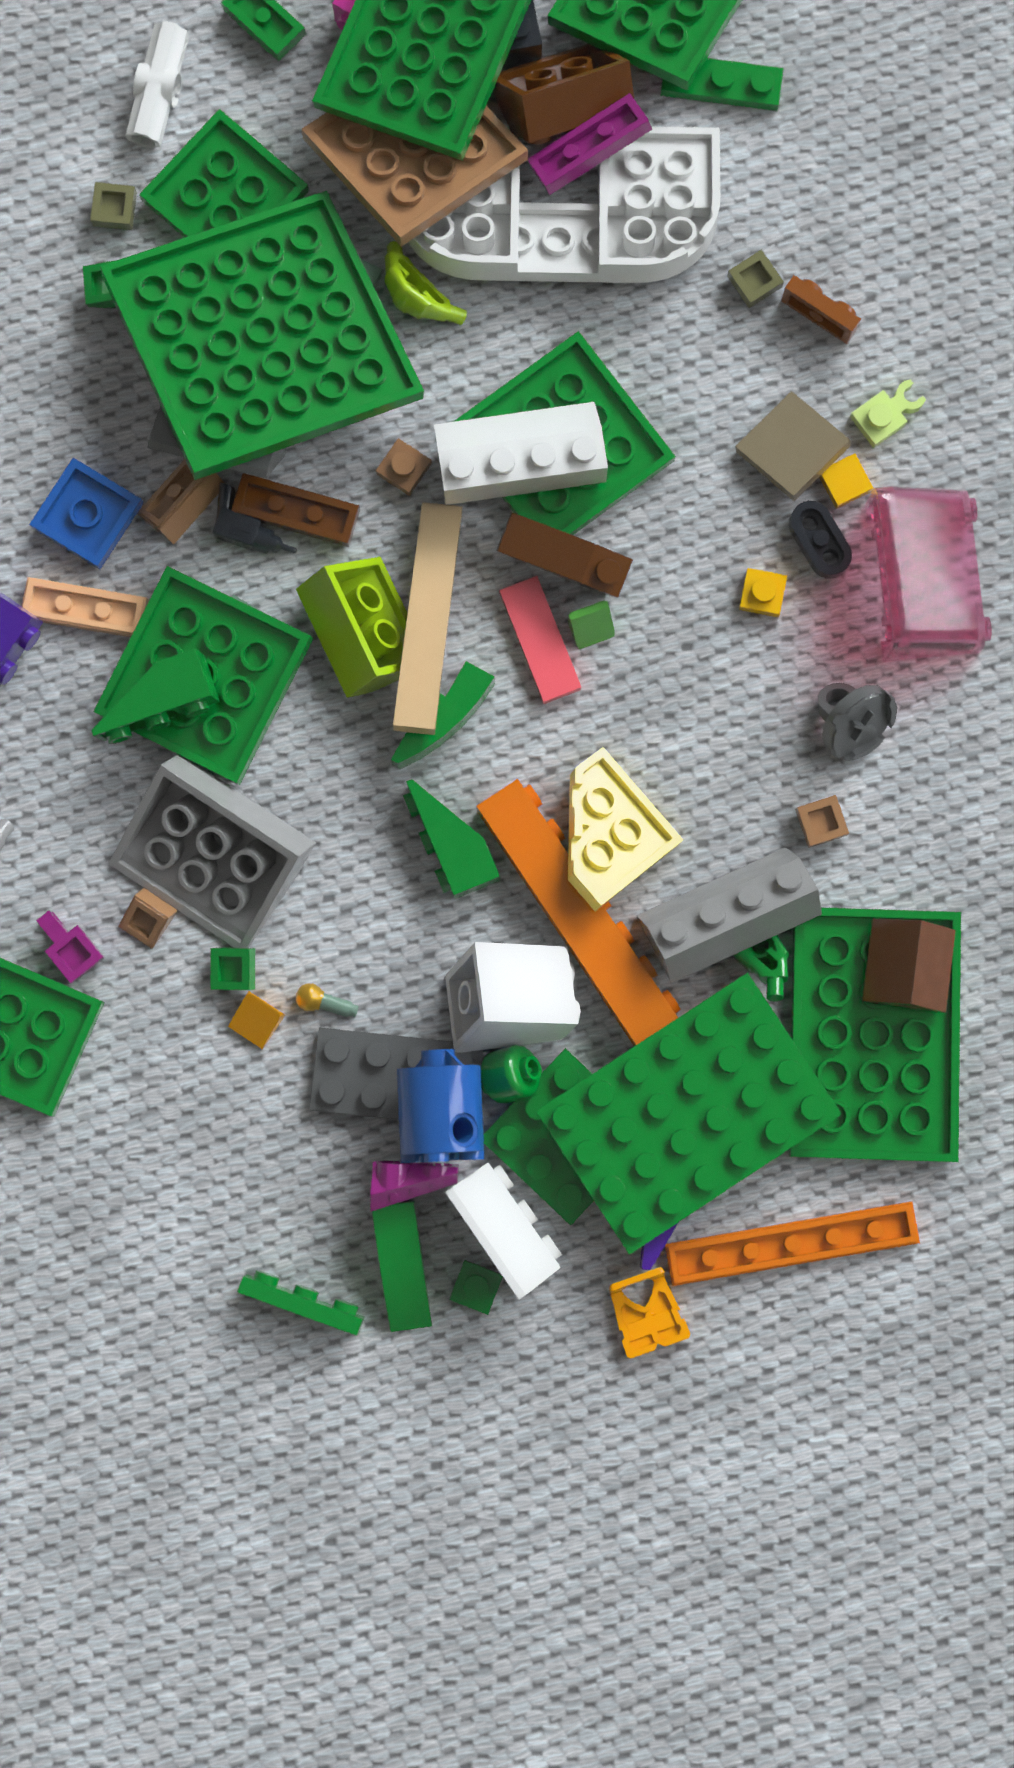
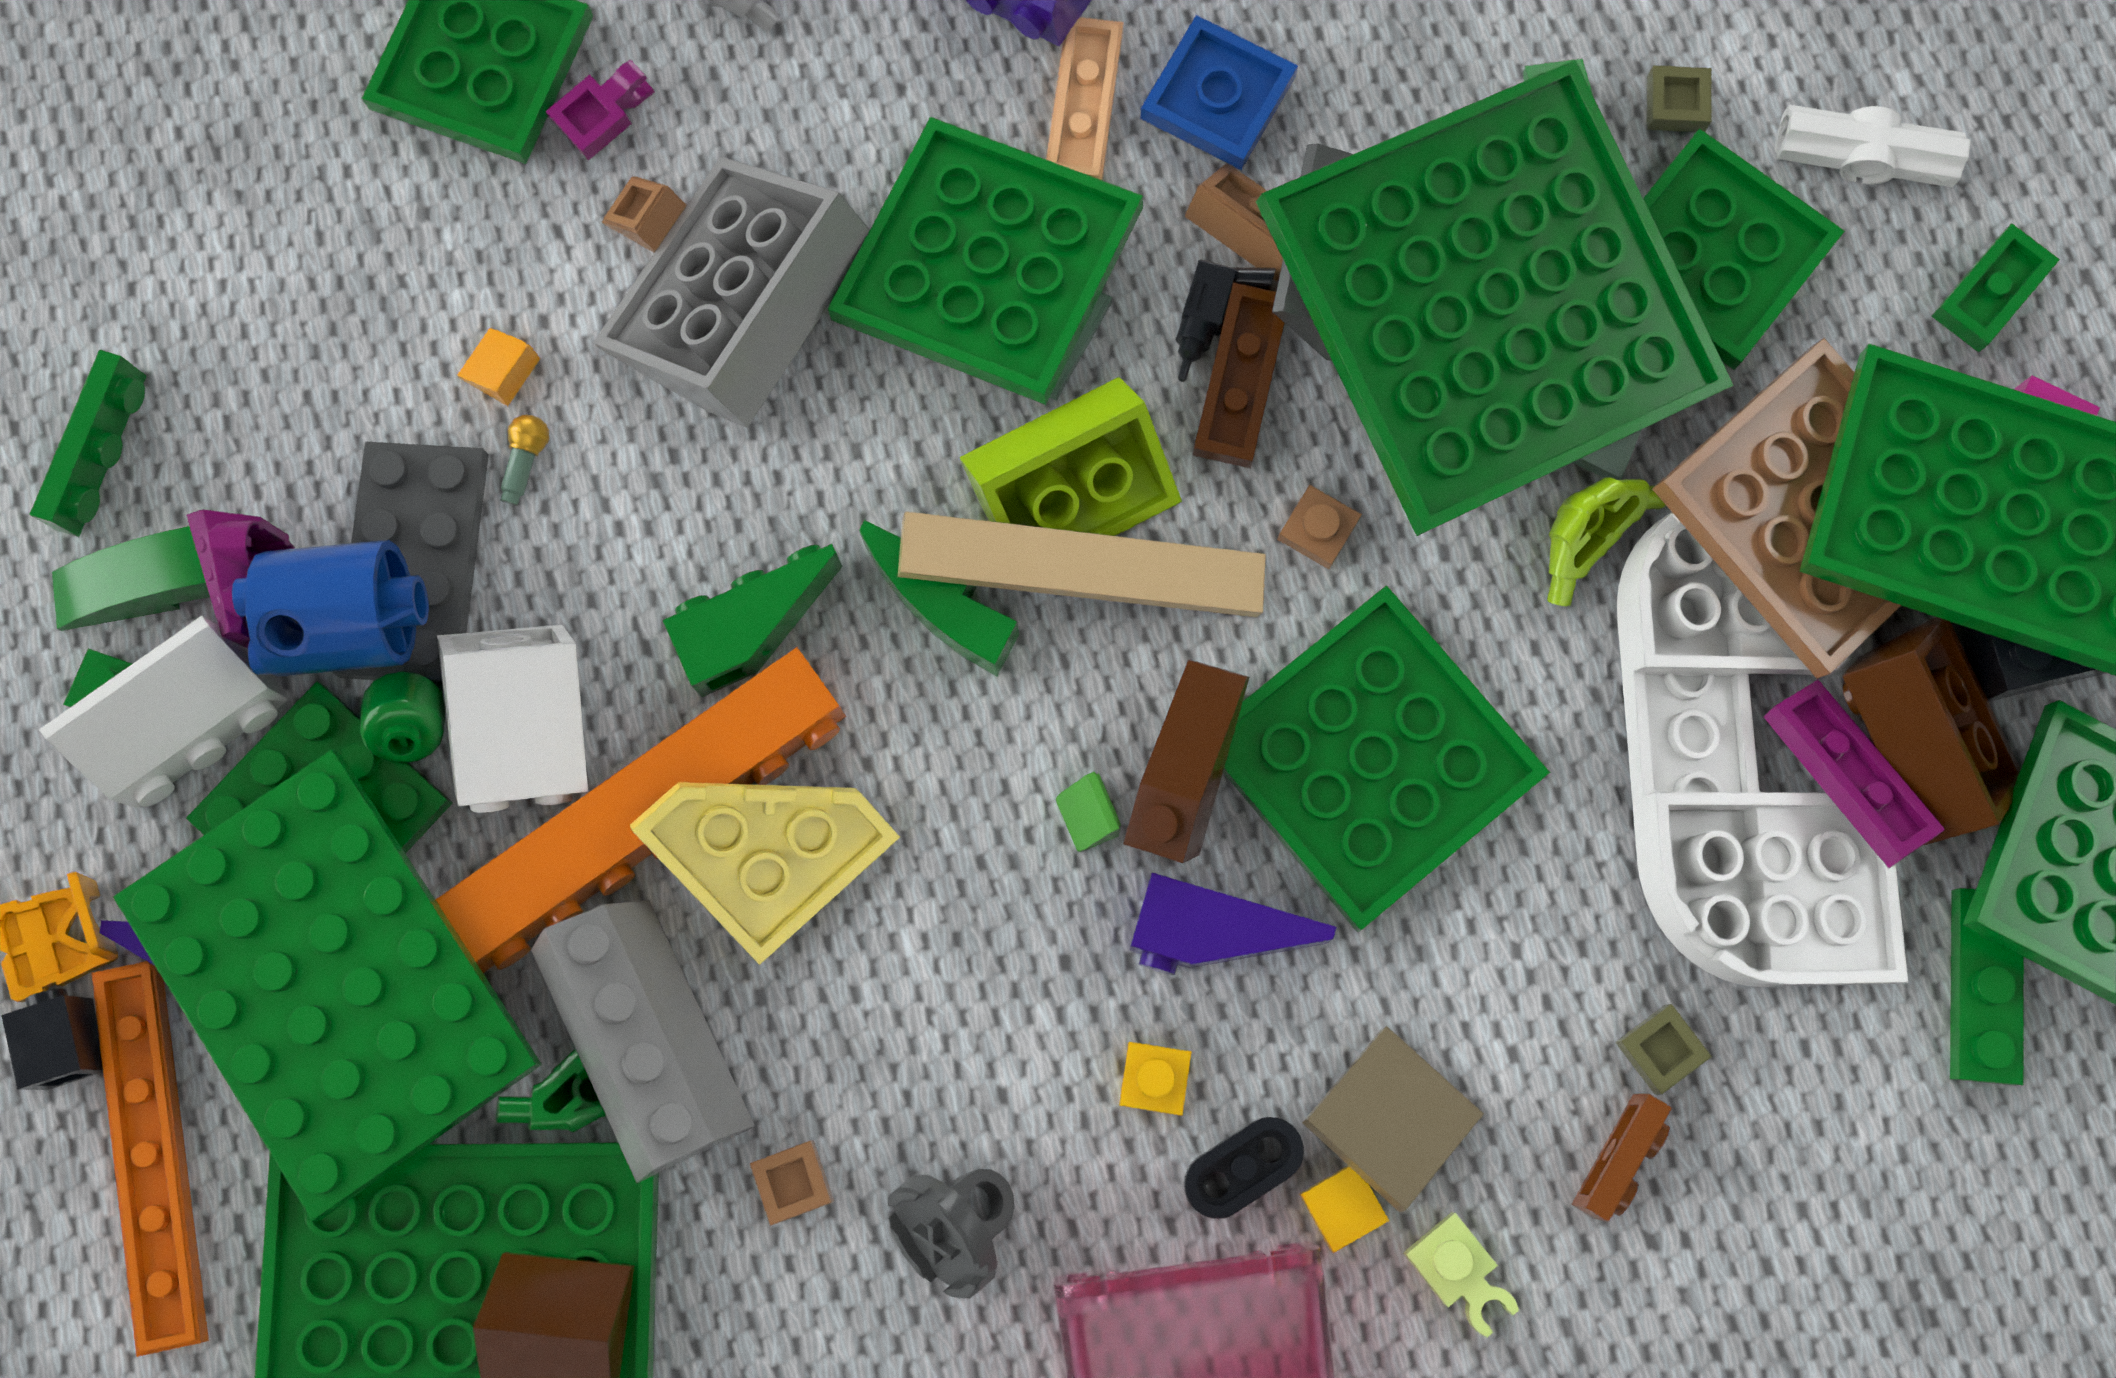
camera: 90 degrees right, 5 degrees down
(164, 692) = (952, 194): green slope -> none
(232, 968) = (566, 325): green plate -> none
(521, 453) = (1346, 686): white slope -> none
(540, 640) = (1065, 738): coral tile -> none
(671, 552) = (1206, 927): none -> dark purple slope
(717, 1305) = (53, 1040): none -> black brick

